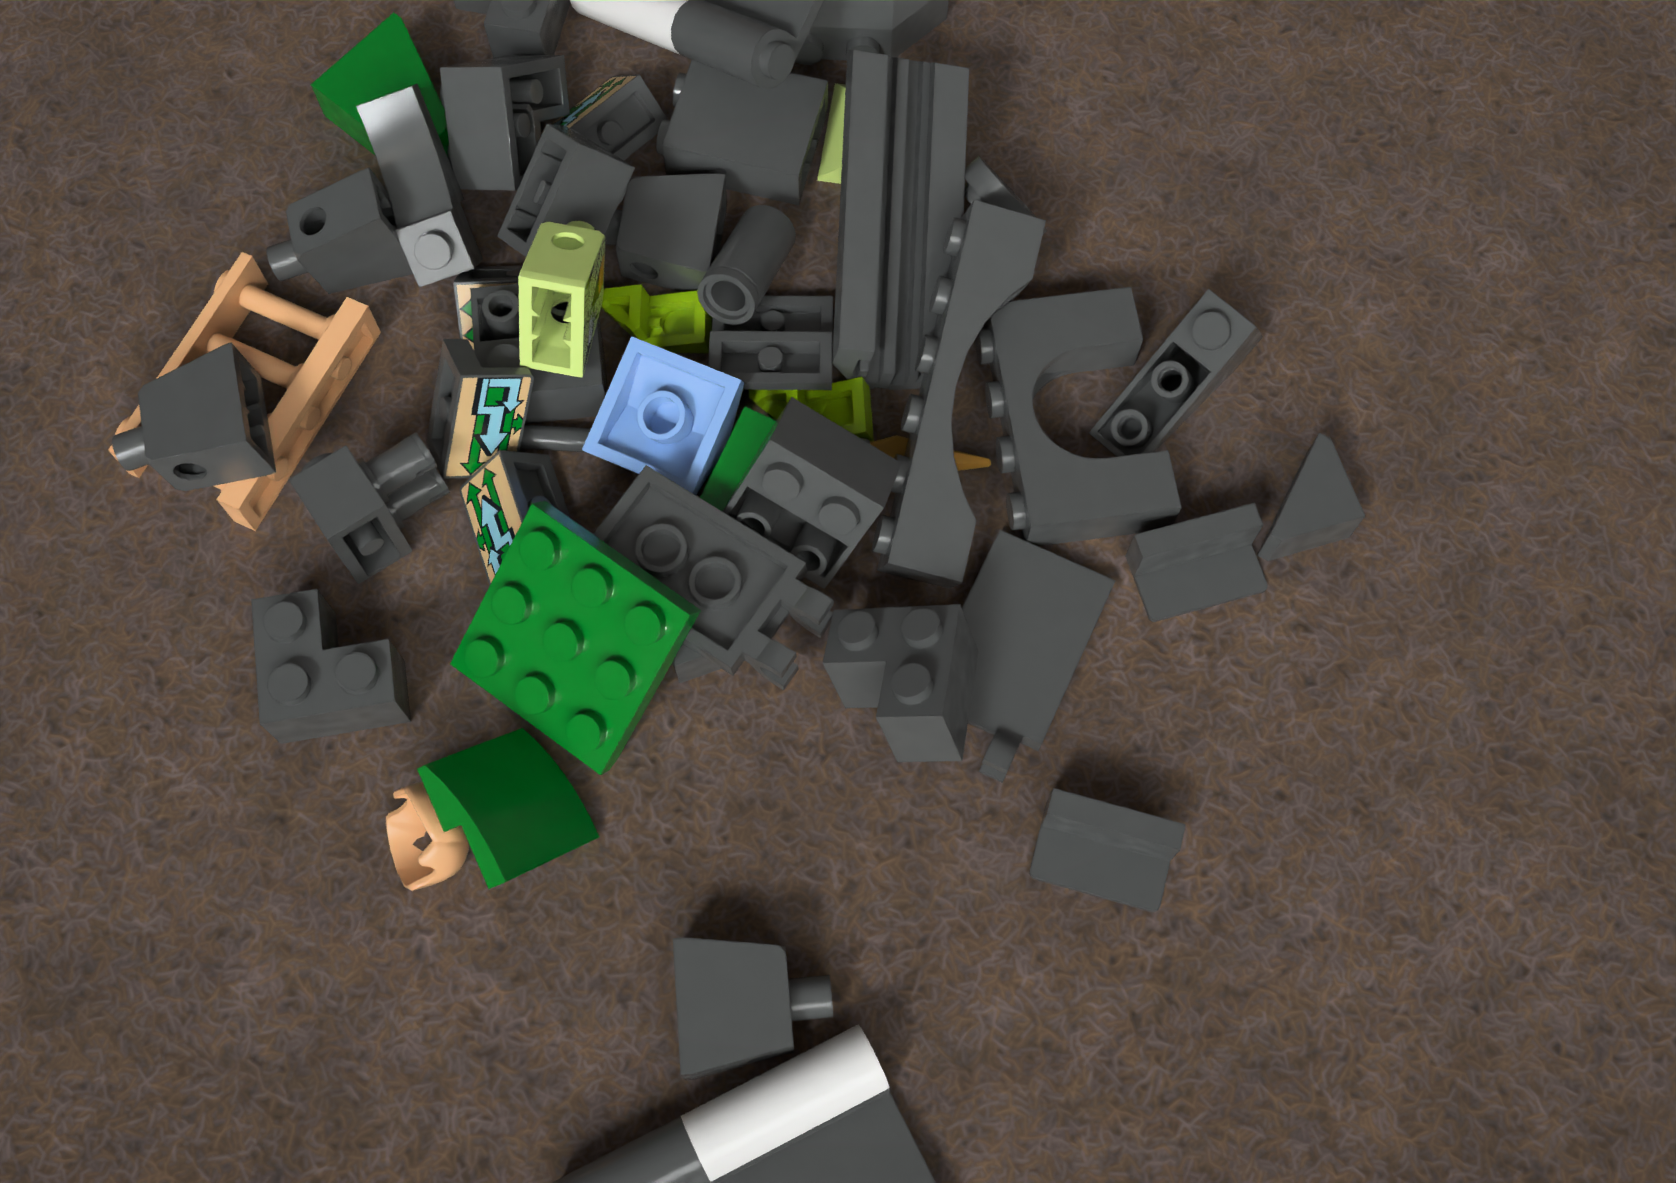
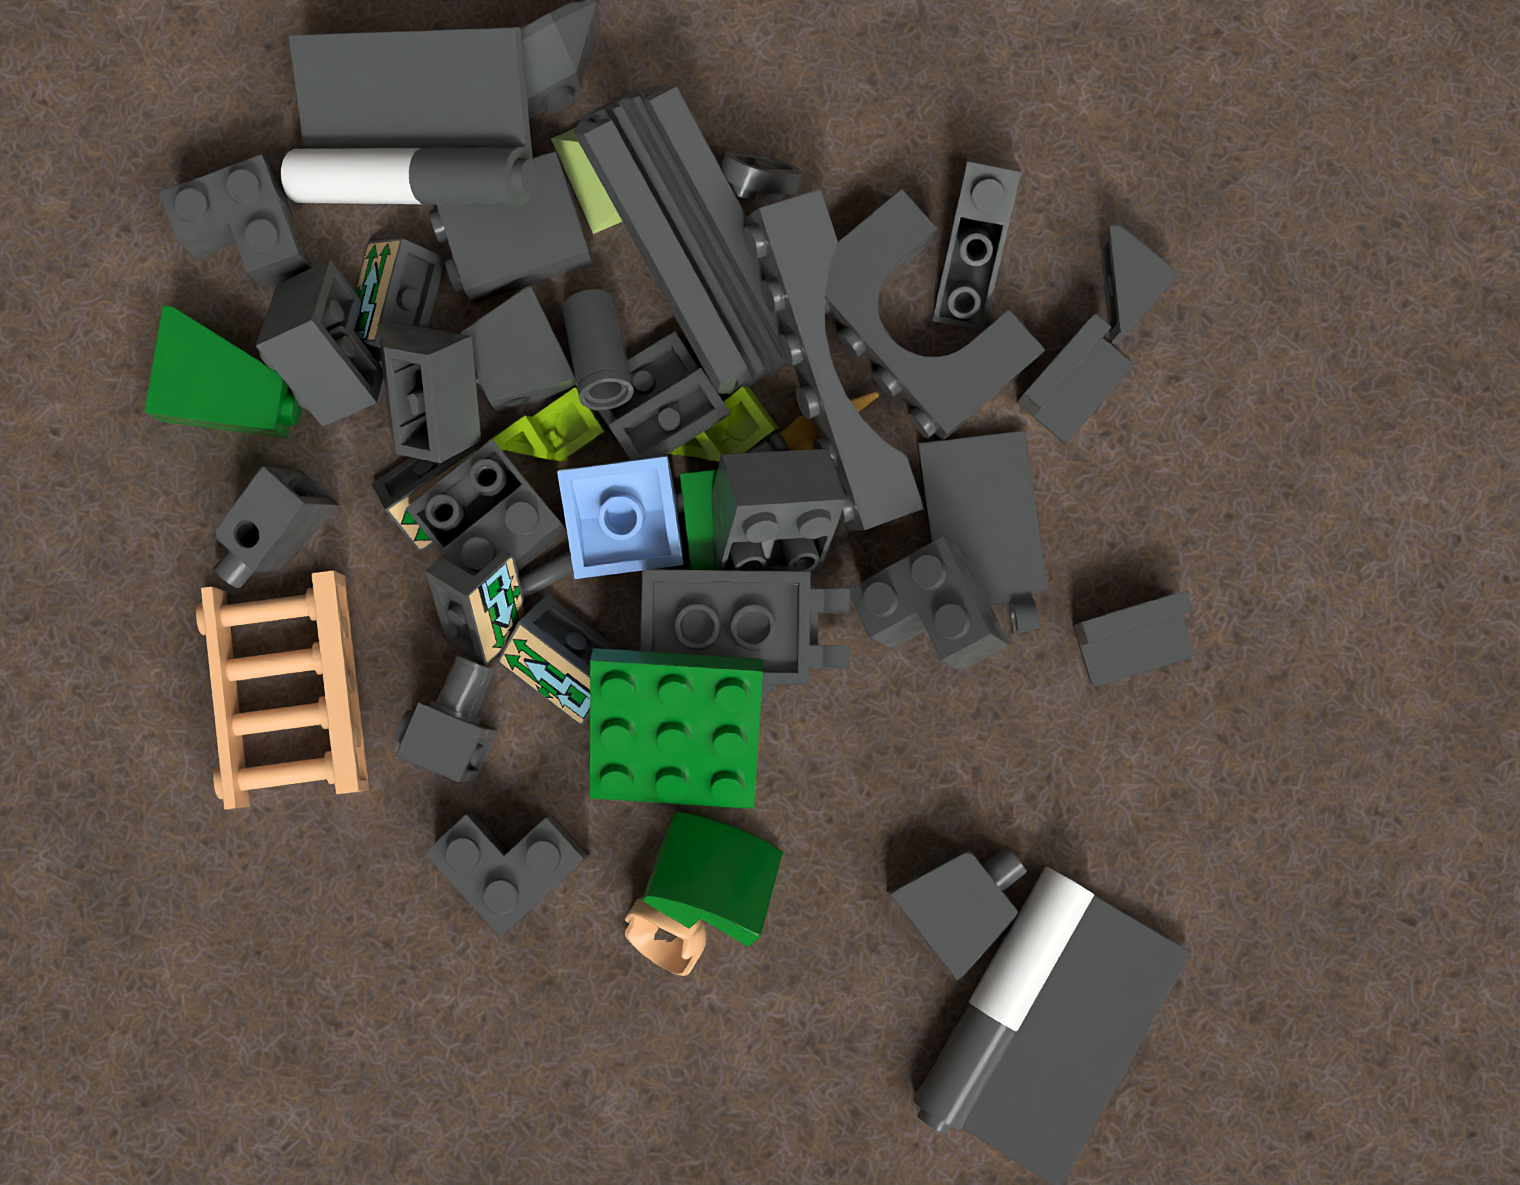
camera: 35 degrees left, 15 degrees up
(202, 424) = (286, 748): dark grey torso -> none
(420, 186) = (302, 447): dark grey slope -> none
(560, 268) = (495, 479): yellowish green torso -> none

